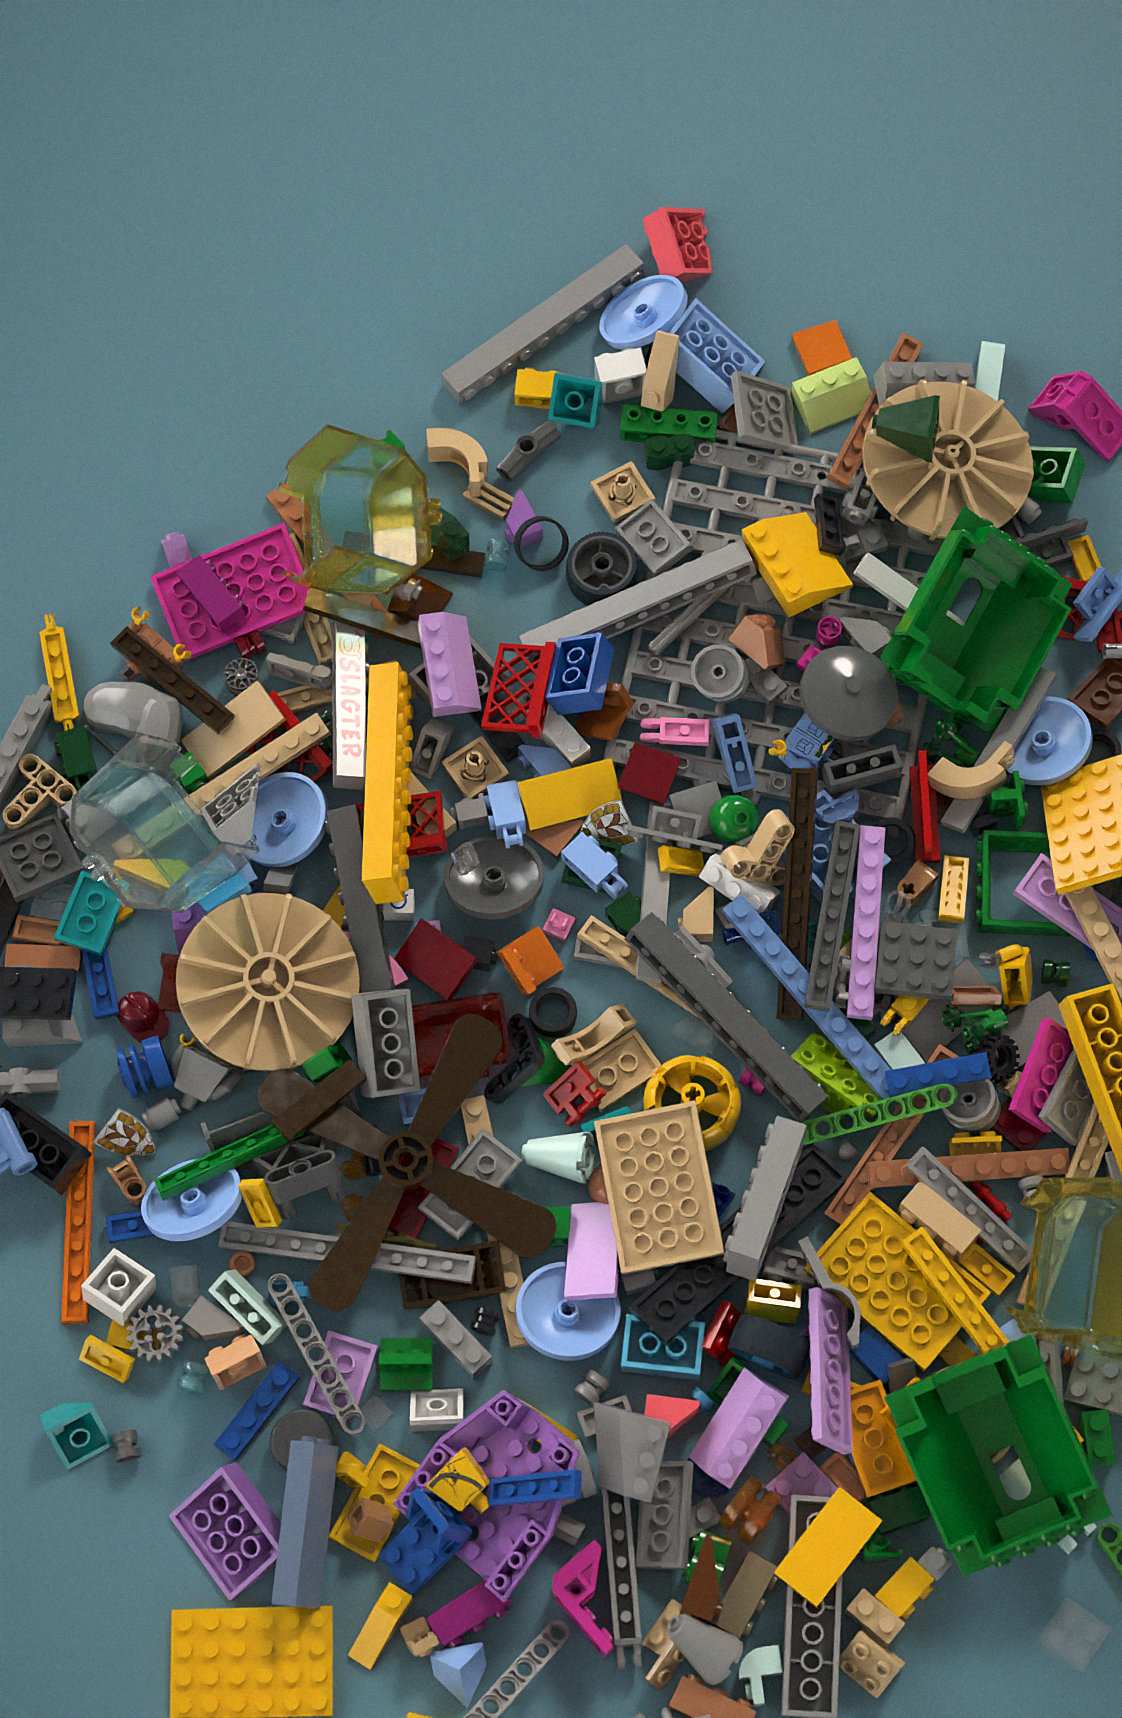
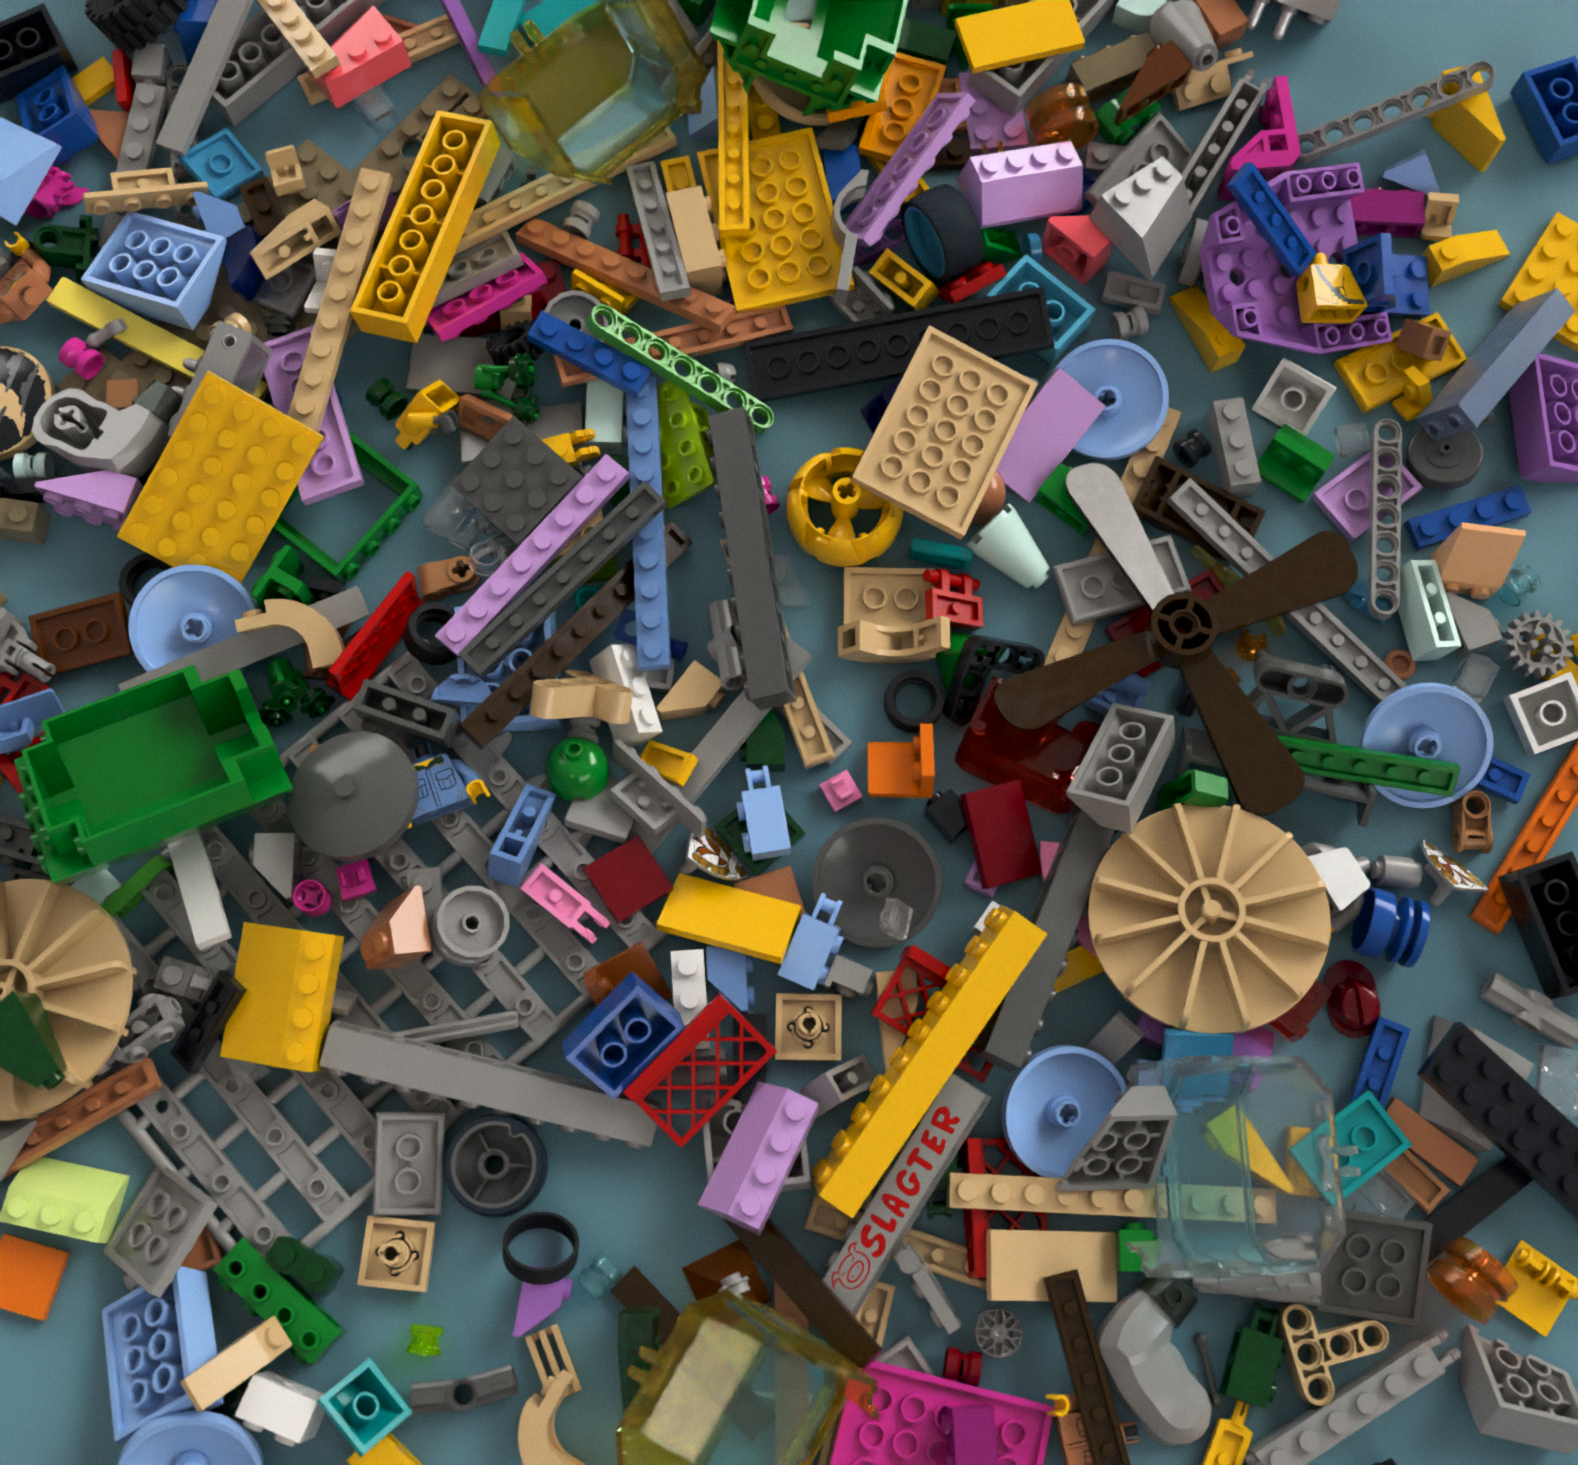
camera: 150 degrees left, 5 degrees up
(259, 1203) = (1360, 695): yellow plate -> none
(318, 1100) = (1237, 745): dark brown tile -> none
(571, 460) = (425, 1339): none -> clear neon green wheel
(764, 1198) = (848, 352): light grey brick -> none
(844, 967) = (618, 494): light grey arm -> none
(953, 889) = (415, 543): yellow plate -> none

